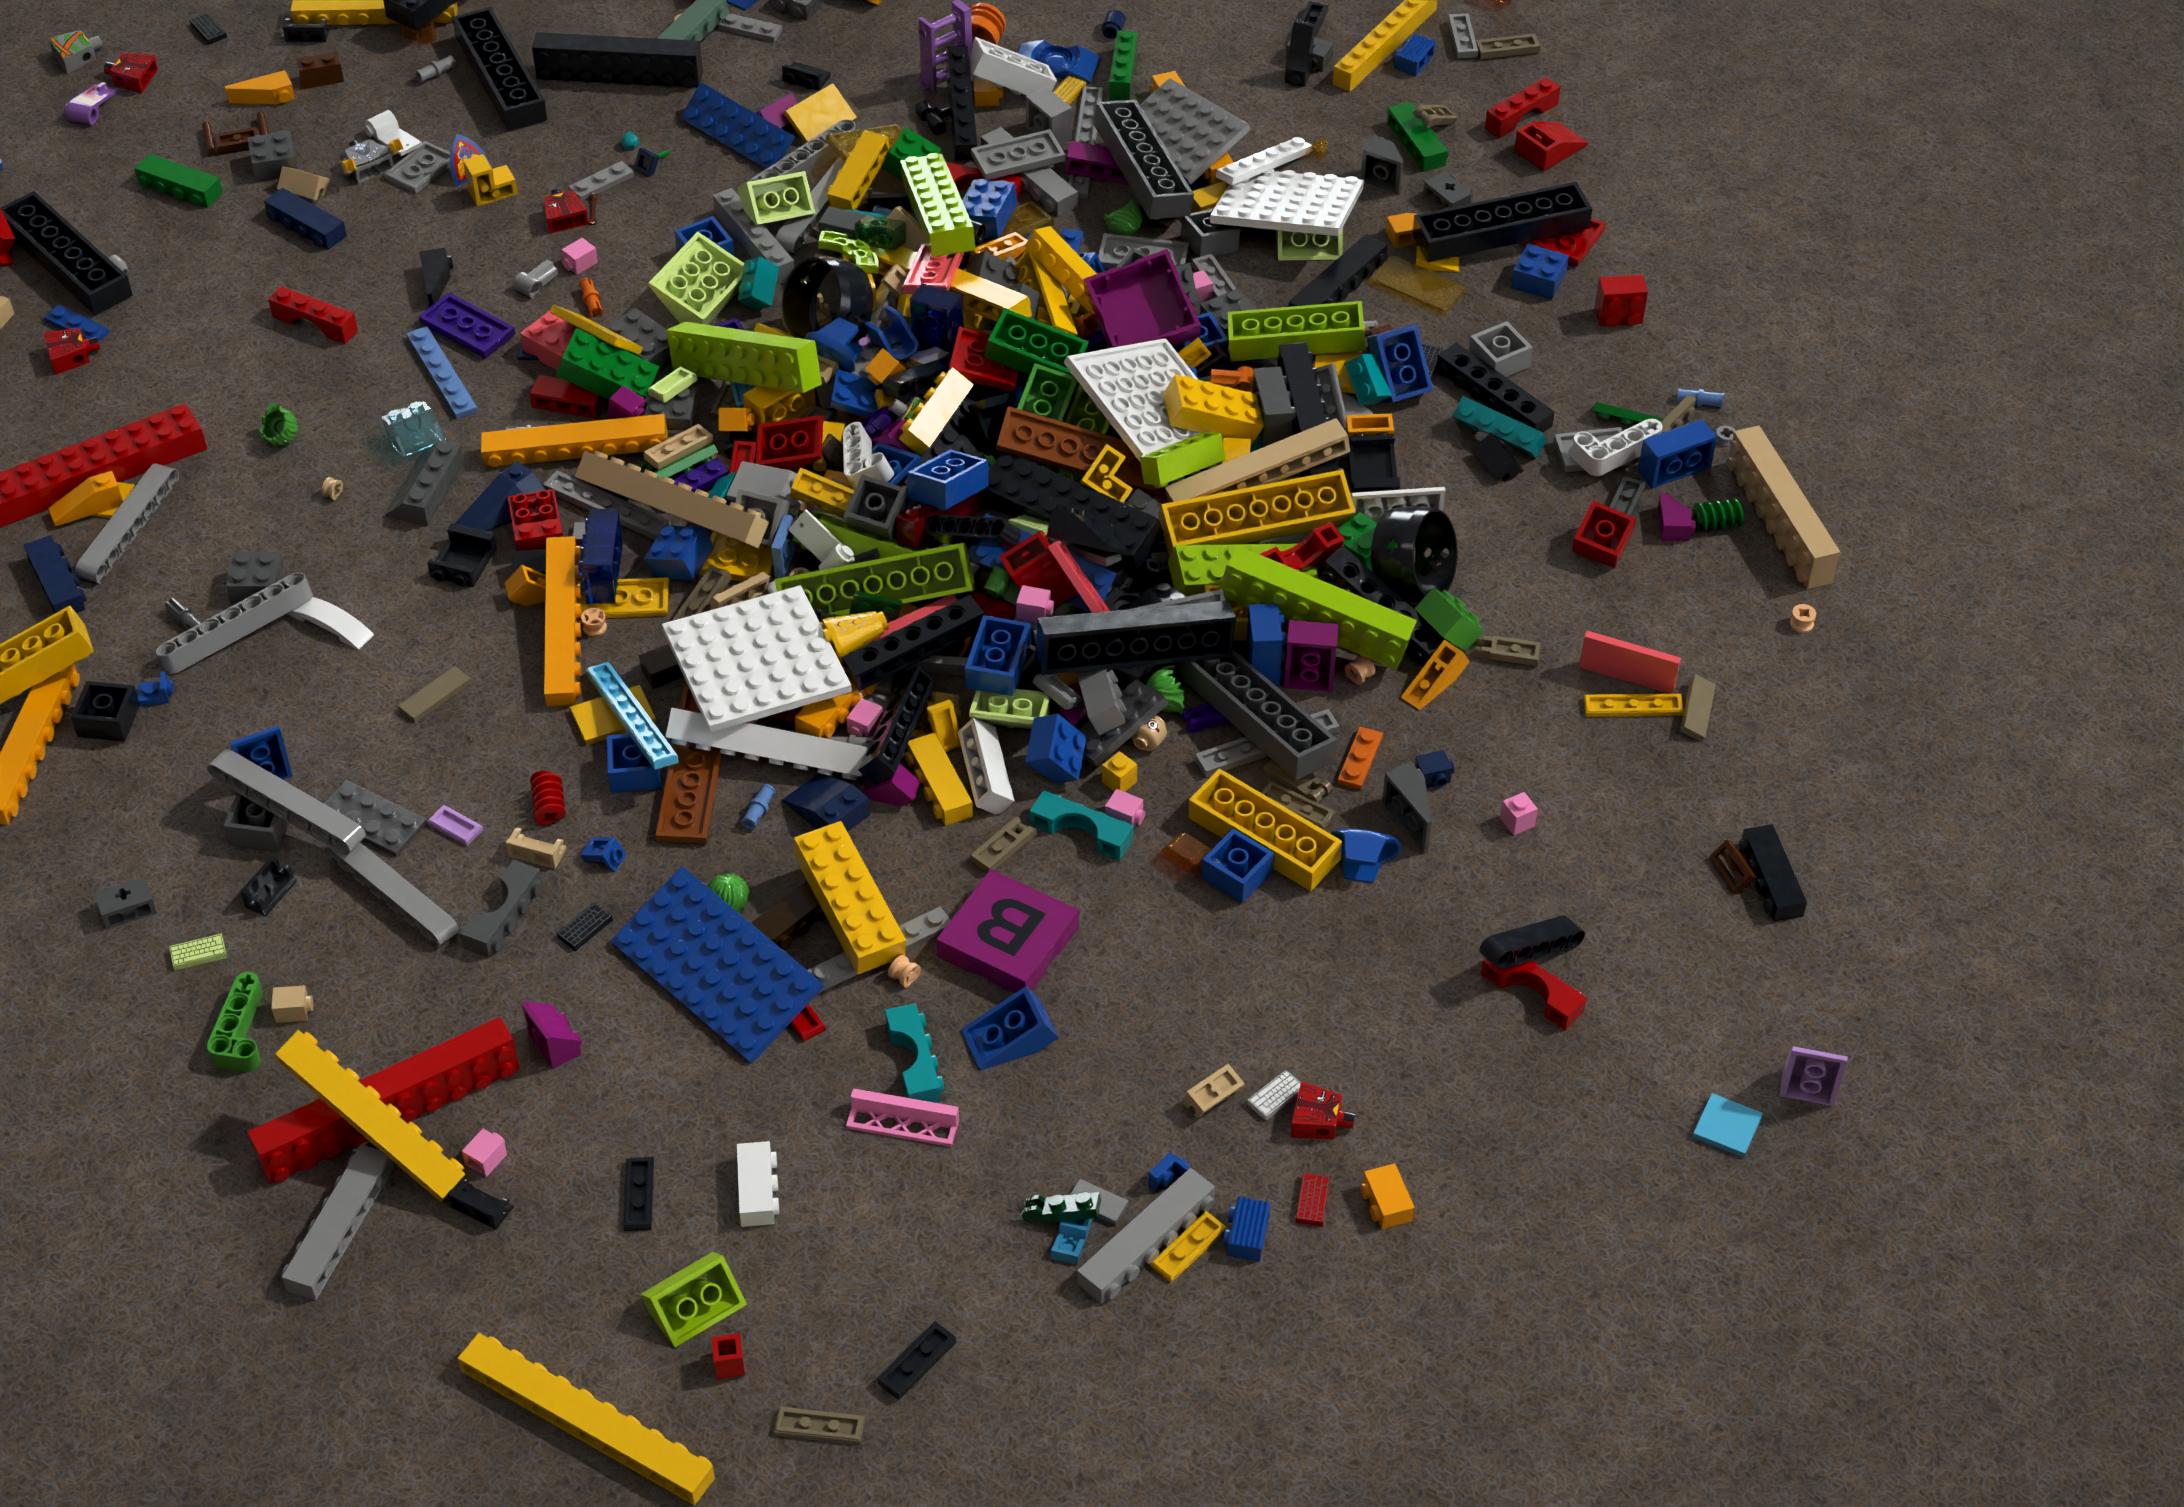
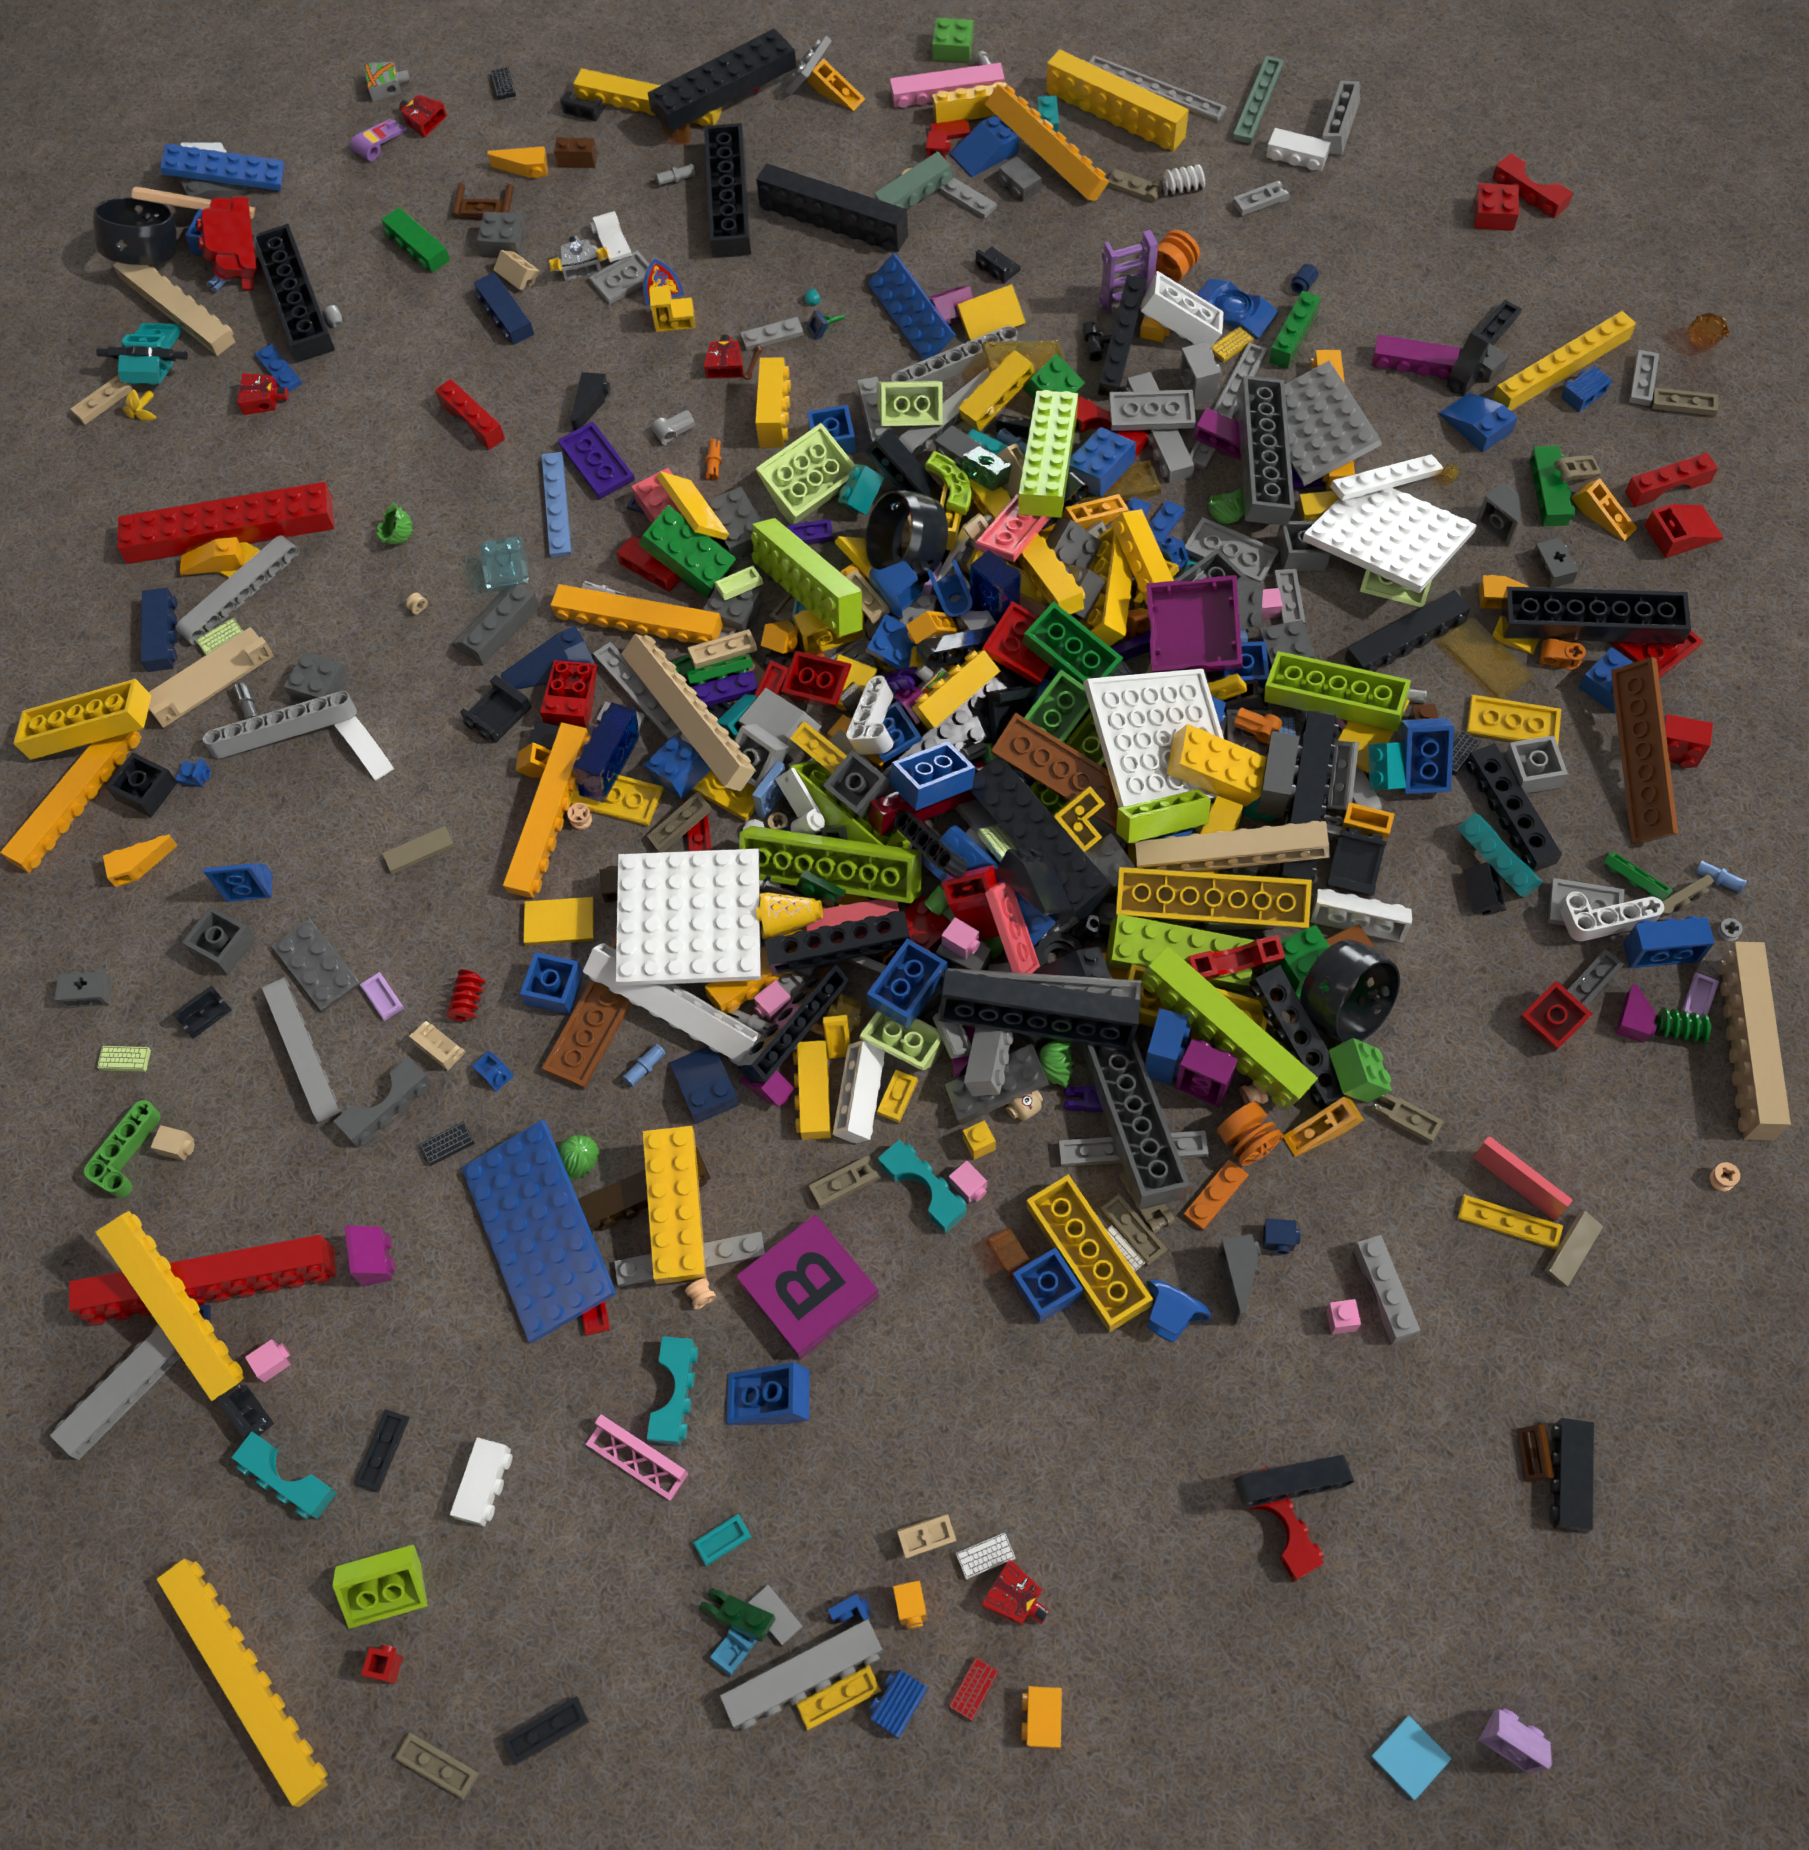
camera: 25 degrees right, 15 degrees up
(126, 569) = (219, 636): none -> yellowish green tile
(128, 780) = (133, 862): none -> light orange slope
(136, 601) = (208, 676): none -> tan bracket
(286, 801) = (238, 937): light grey beam -> none
(579, 256) = (719, 412): bright pink brick -> none
(579, 1248) = (259, 1457): none -> teal arch
(625, 404) = (690, 593): magenta slope -> none
(632, 716) = (565, 937): medium azure tile -> none
(634, 233) = (772, 403): none -> yellow brick
(748, 589) = (712, 830): tan plate -> none
(790, 248) = (902, 466): none -> black brick
(1018, 1160) = (722, 1540): none -> teal tile
(1020, 771) = (897, 1096): none -> yellow plate
(1056, 749) = (925, 1099): blue brick -> none
(1225, 1143) = (910, 1604): none -> light orange piece
(1245, 63) = (1414, 356): none -> magenta brick
(1330, 100) = (1480, 420): none -> blue slope
(1371, 695) = (1247, 1130): none -> orange wheel
(1457, 326) = (1511, 719): none -> yellow tile
(1469, 142) = (1602, 507): none -> light orange slope
(1484, 263) = (1561, 654): none -> orange piece
(1566, 797) = (1394, 1306): none -> light grey arch
(1592, 312) = (1644, 751): none -> dark orange plate
(1721, 487) = (1700, 994): none -> lavender tile

